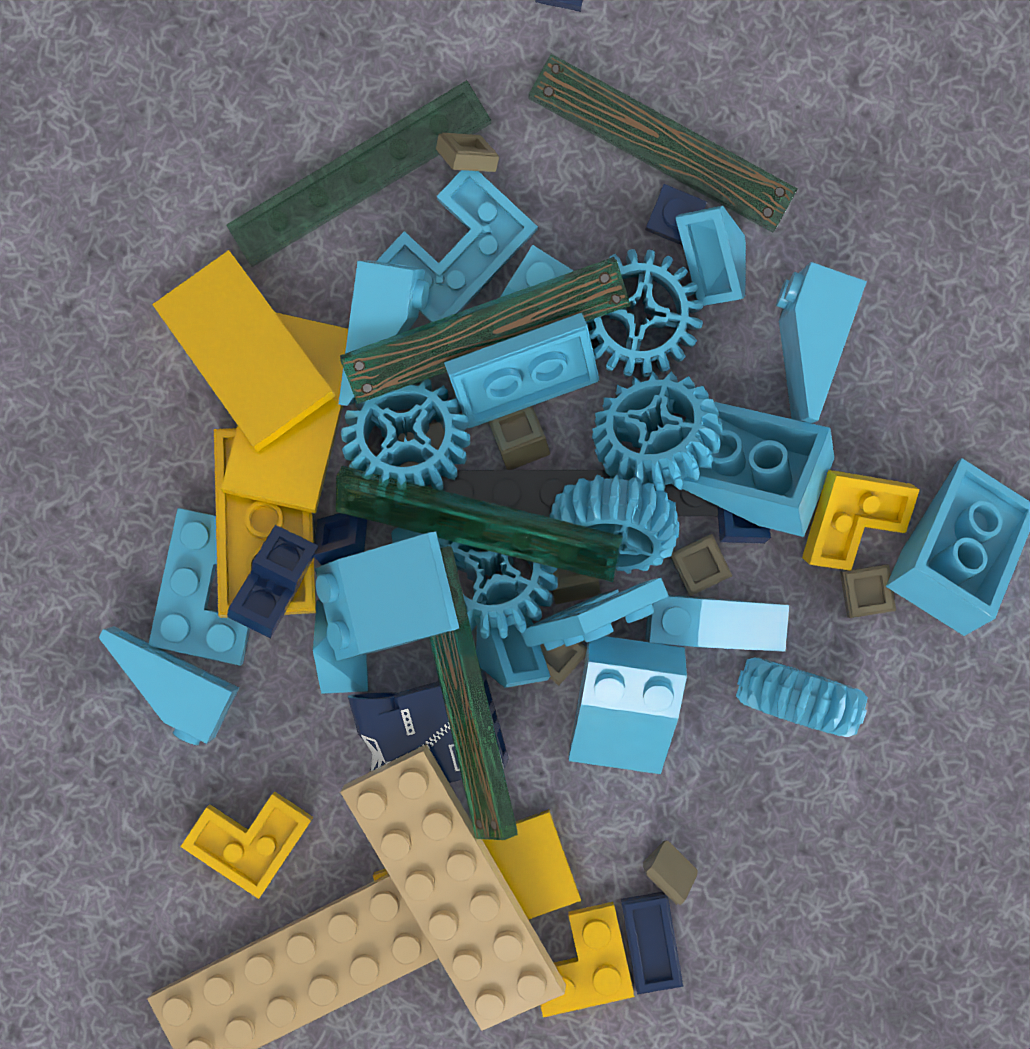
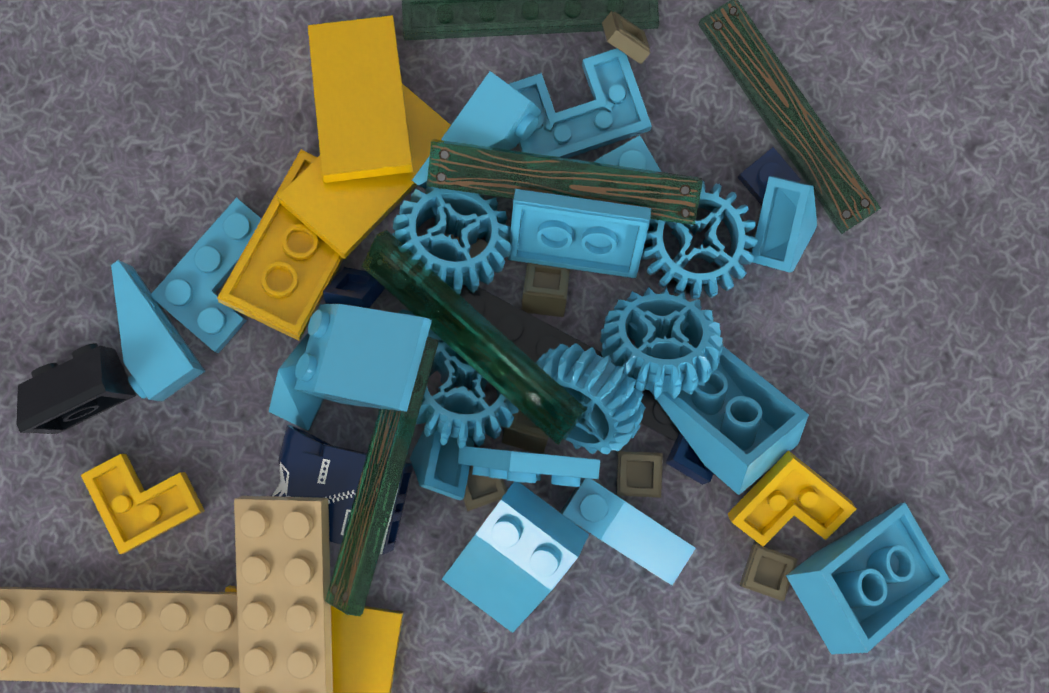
camera: 25 degrees right, 5 degrees down
(128, 773) = (72, 391): none -> black slope
(272, 581) = (276, 294): dark blue slope -> none
(801, 697) = (666, 631): medium azure gear -> none
(813, 331) = (836, 326): medium azure slope -> none

